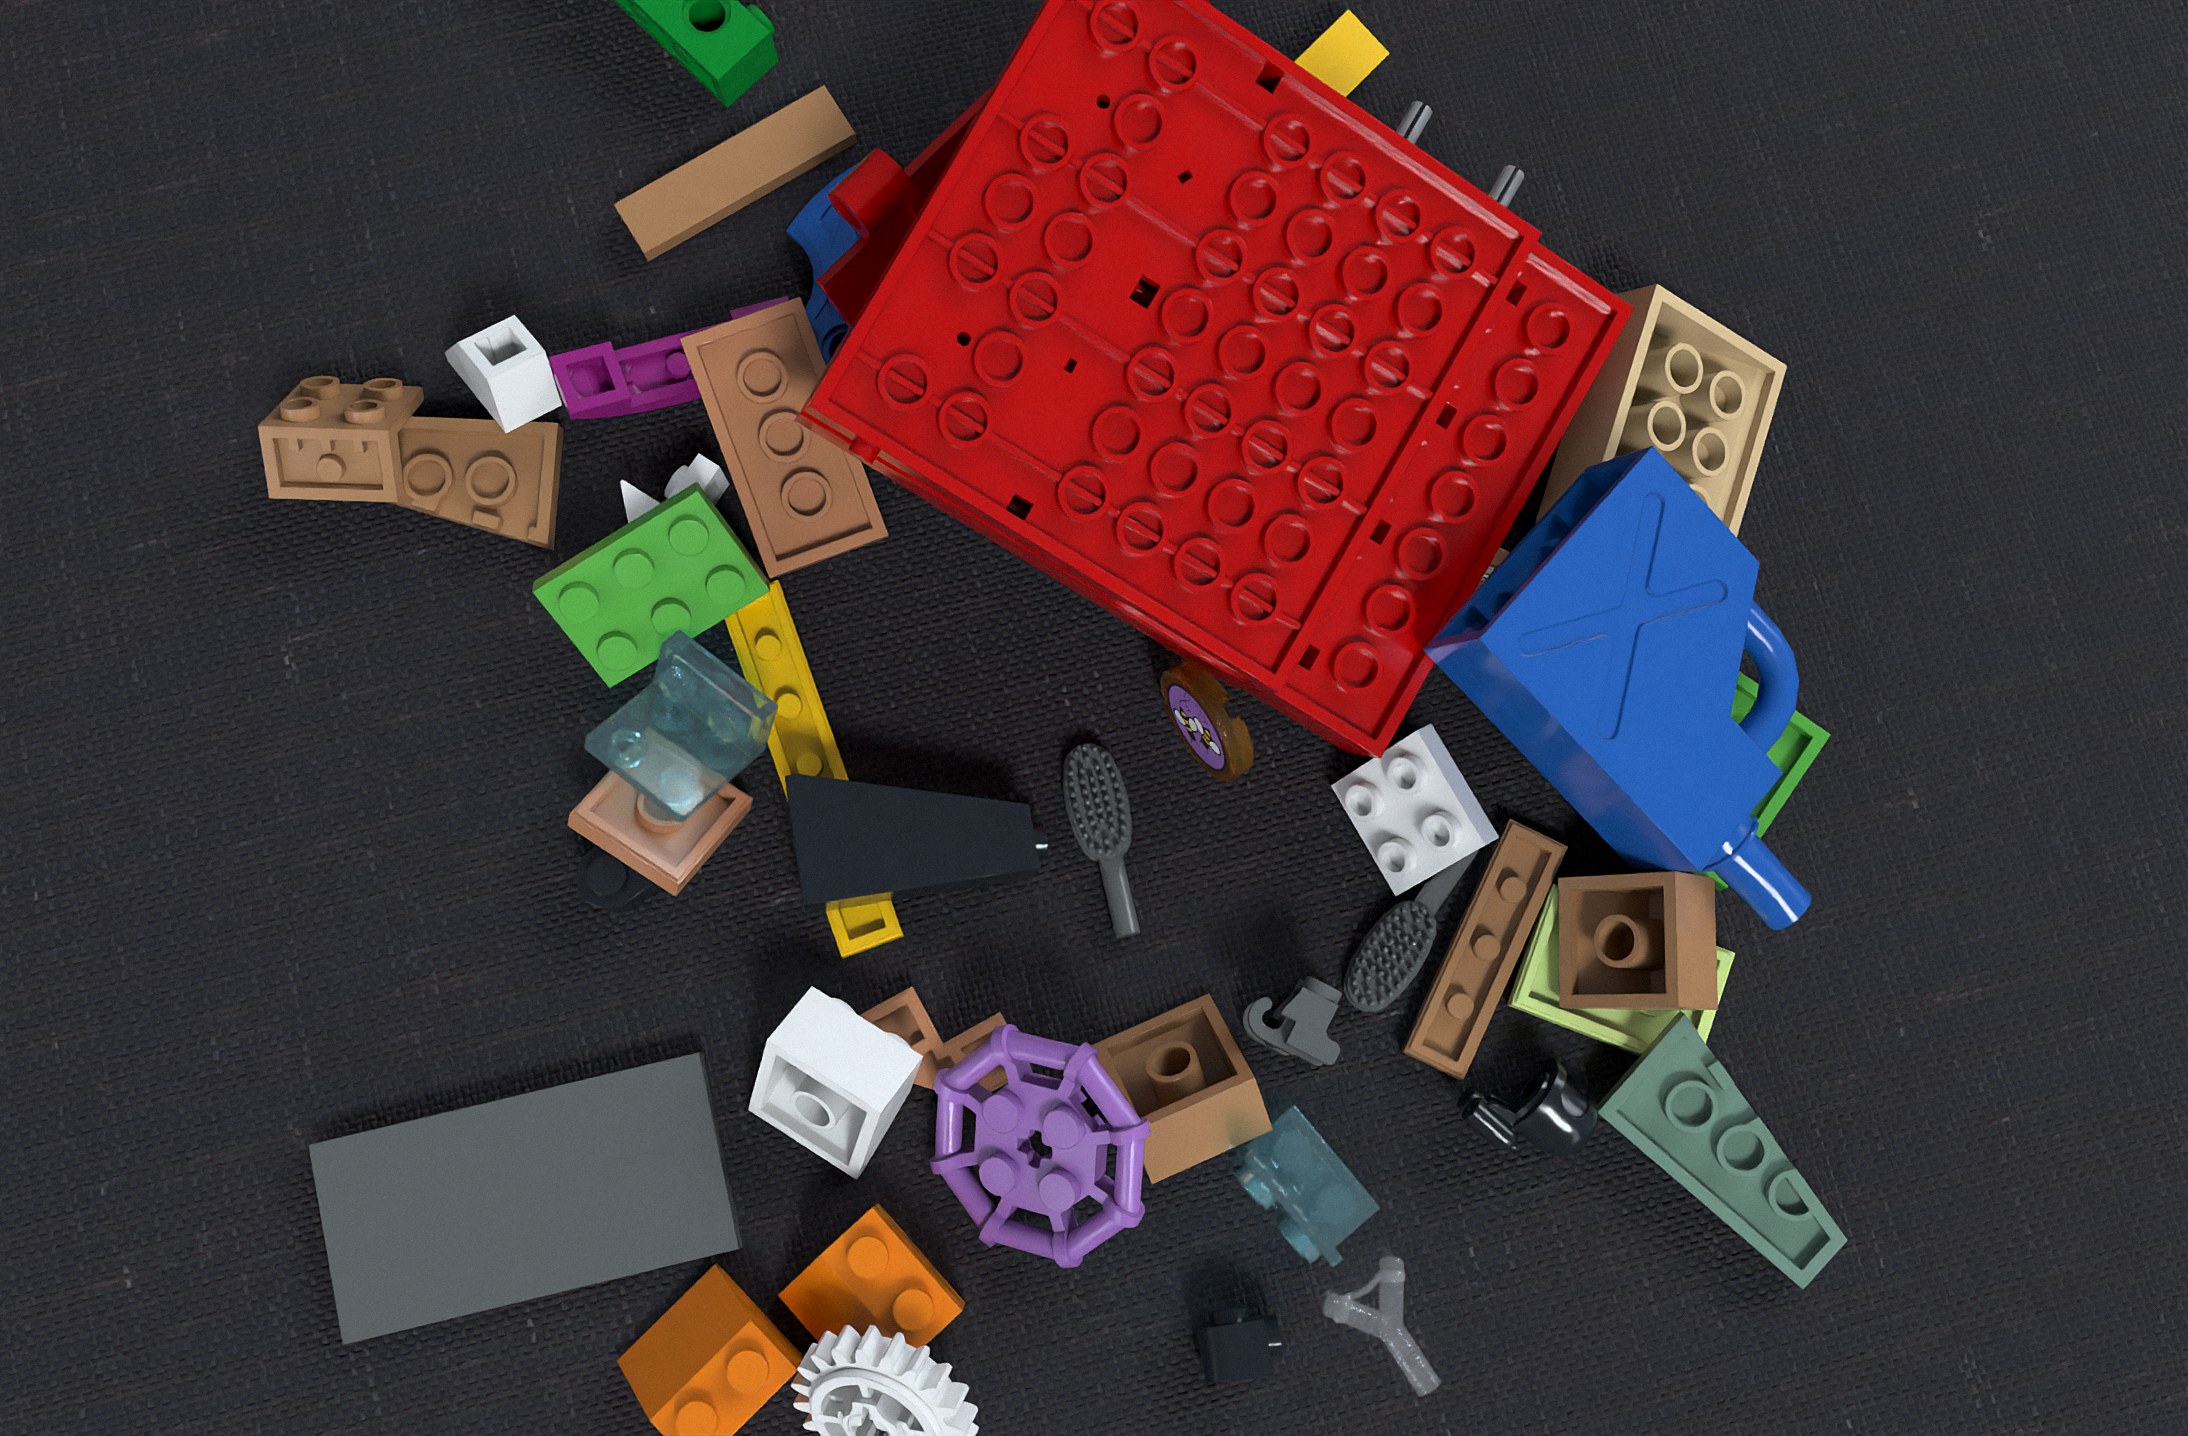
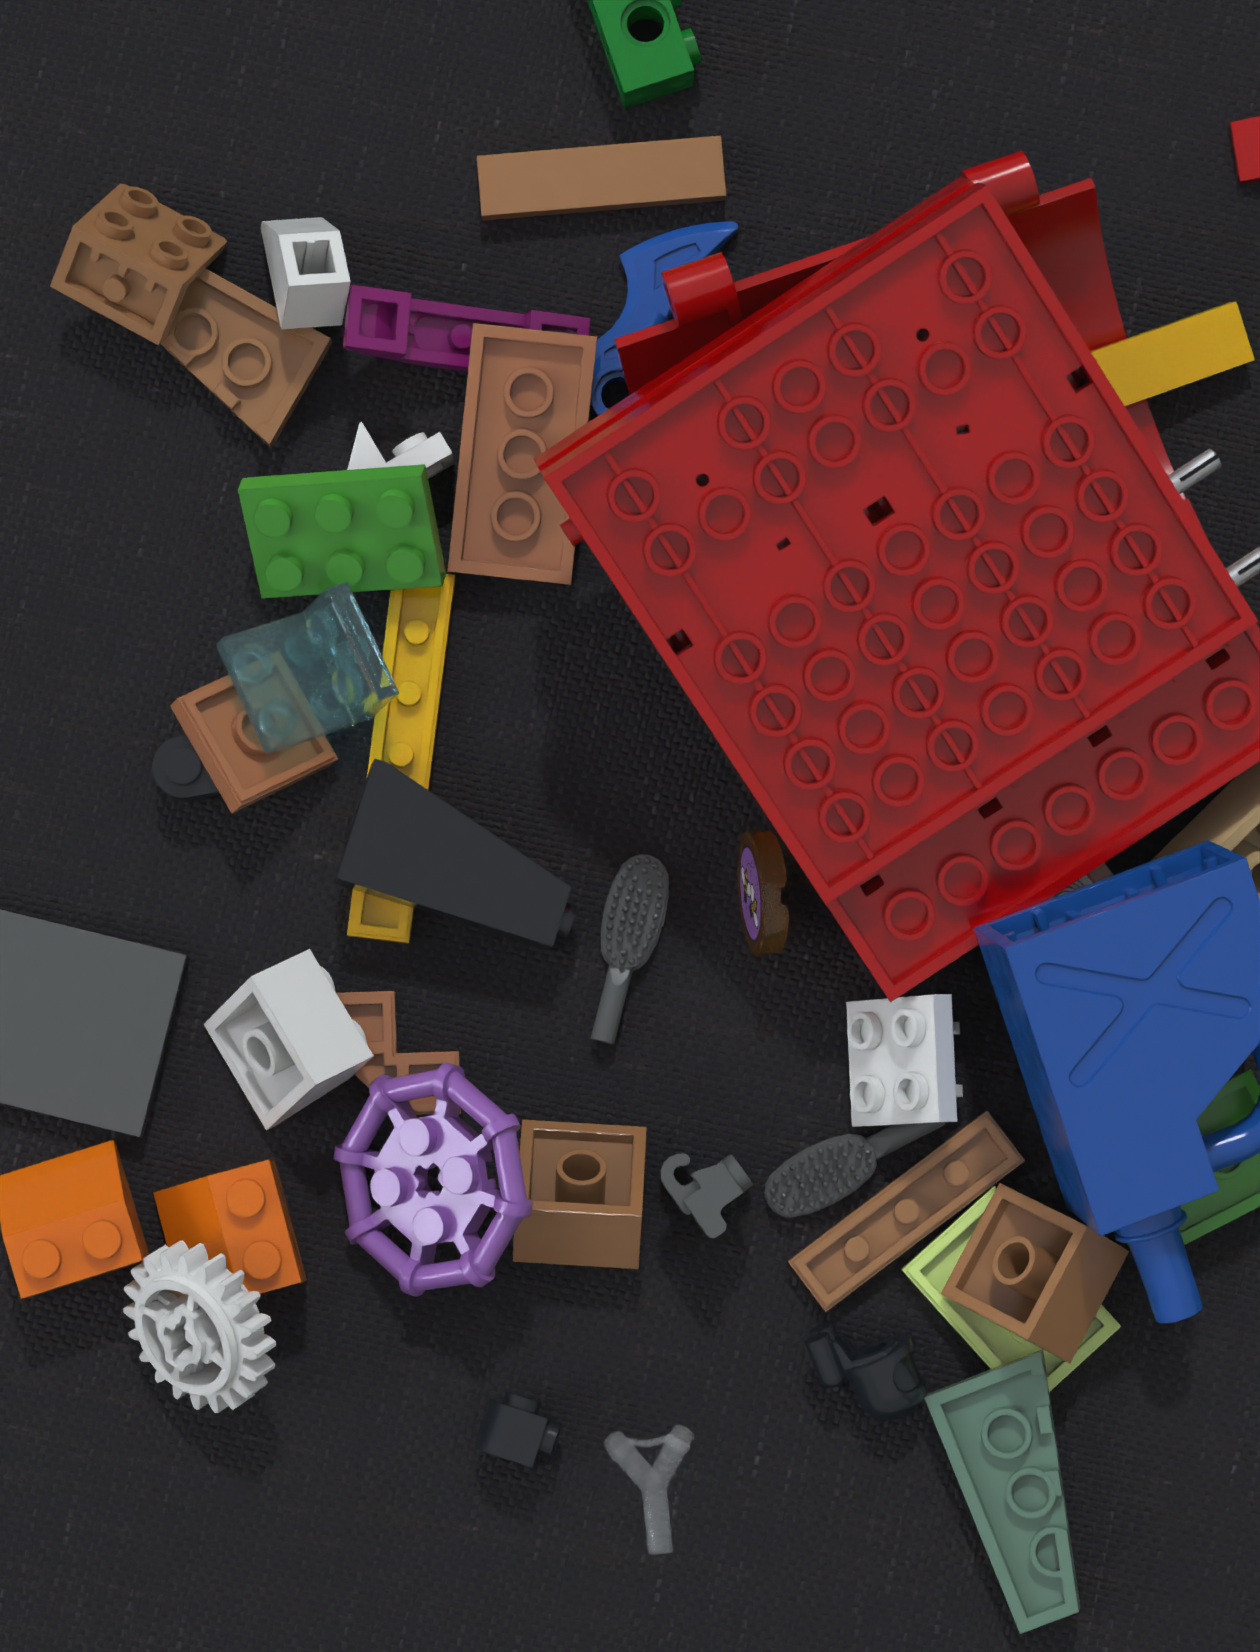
camera: 30 degrees right, 5 degrees up
(1306, 1185) = (643, 1330): clear light blue bracket -> none

